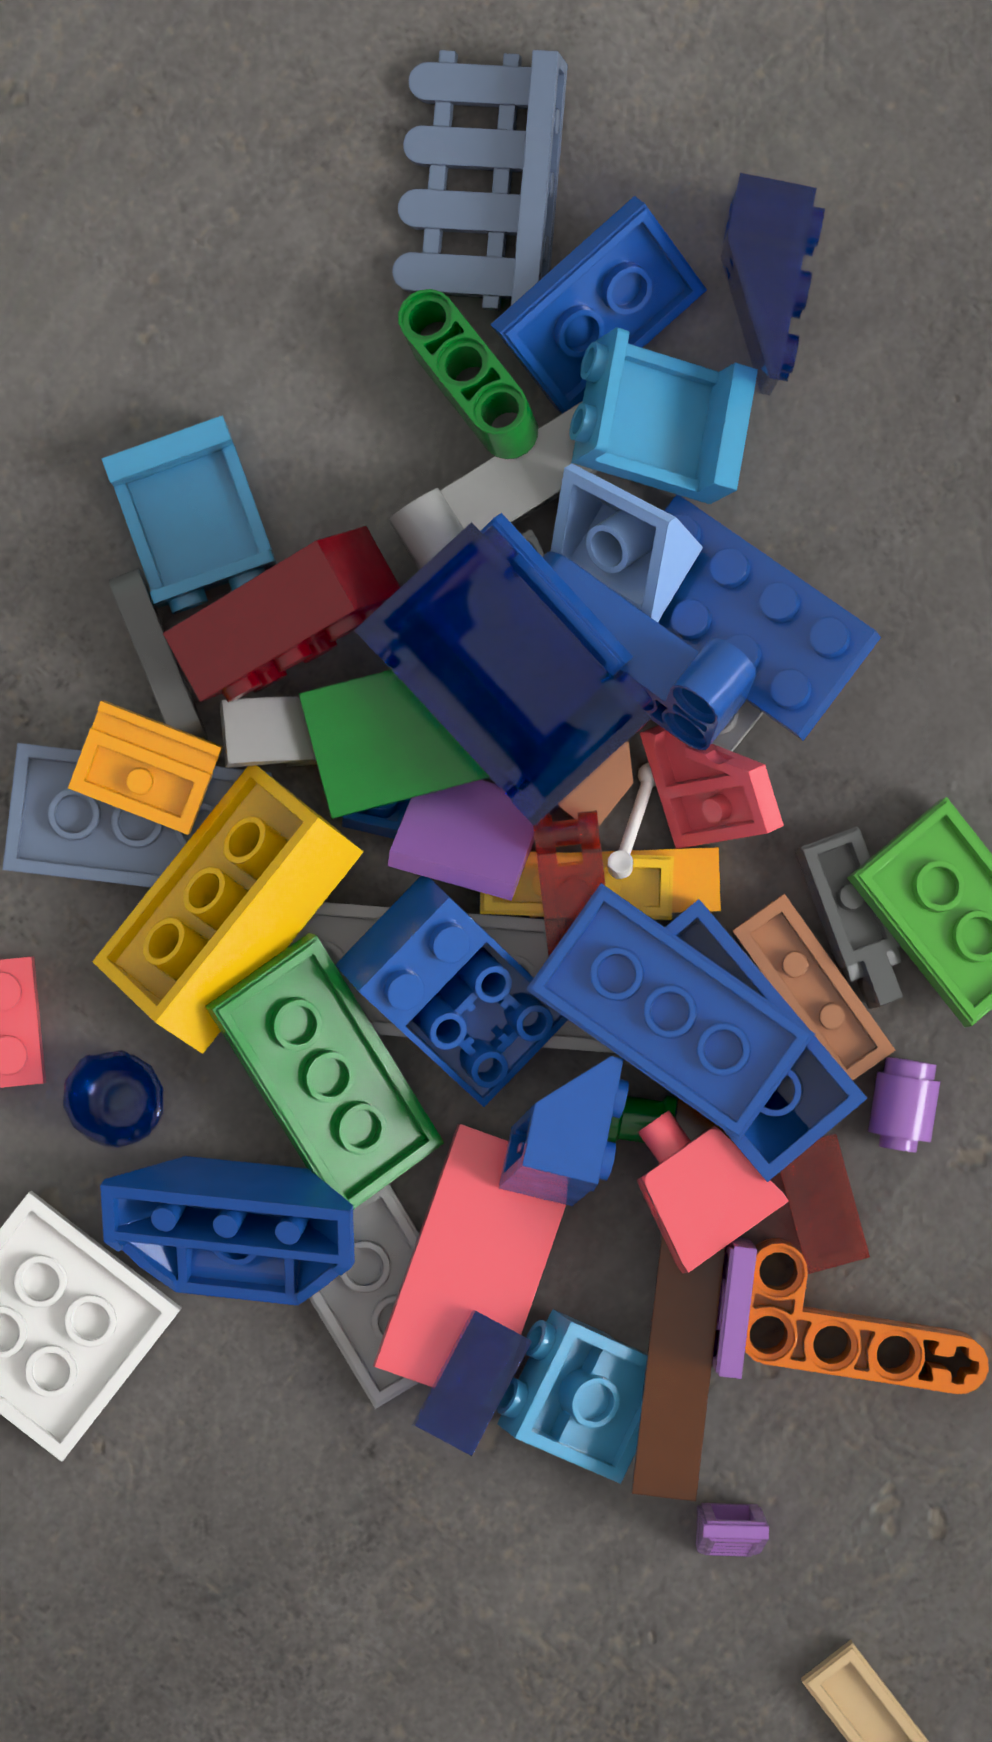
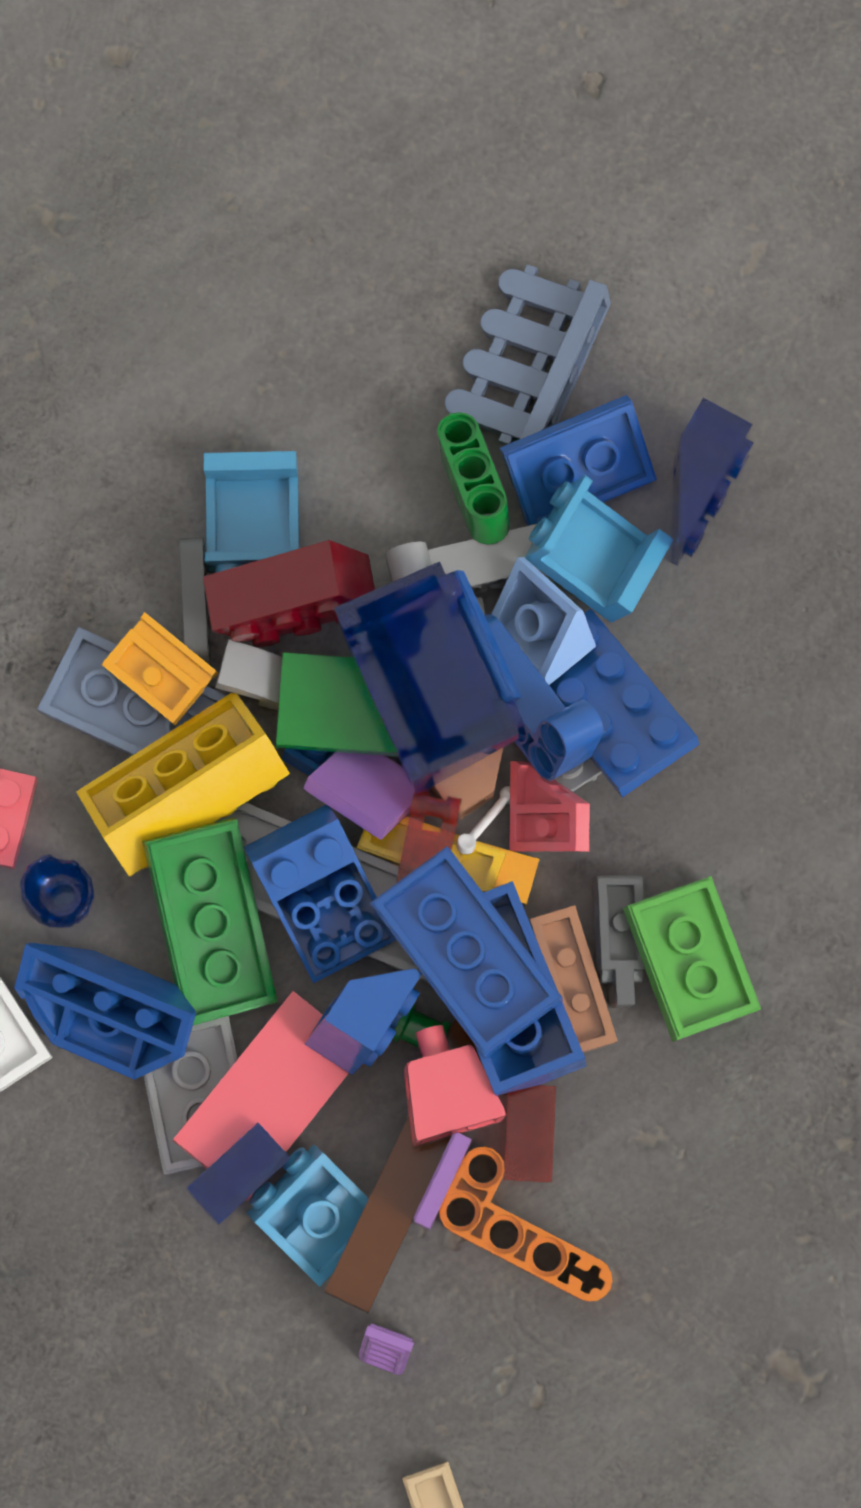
camera: 20 degrees right, 10 degrees down
(904, 1104) = (612, 1081): medium lavender brick -> none

